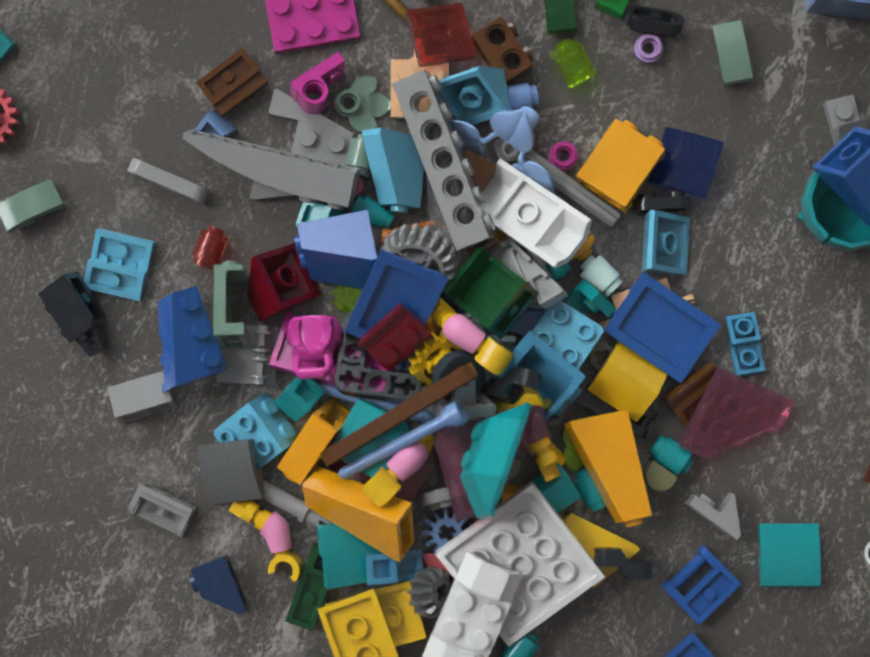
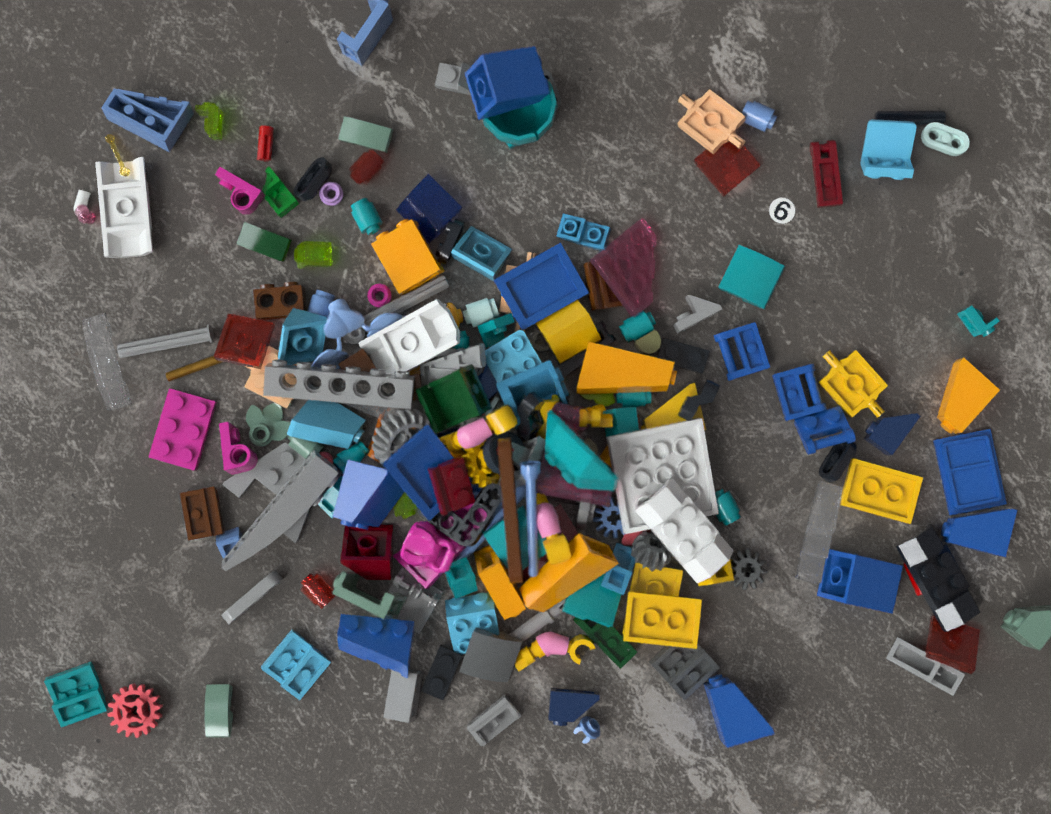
camera: 60 degrees left, 0 degrees up
(75, 312) = (315, 714): black hinge -> none
(186, 427) = (441, 672): none -> black plate
(204, 619) = (589, 727): none -> medium blue plate
(642, 98) = (366, 216): none -> teal brick
(664, 522) = (683, 355): none -> black plate
(696, 71) = (366, 167): none -> clear red brick

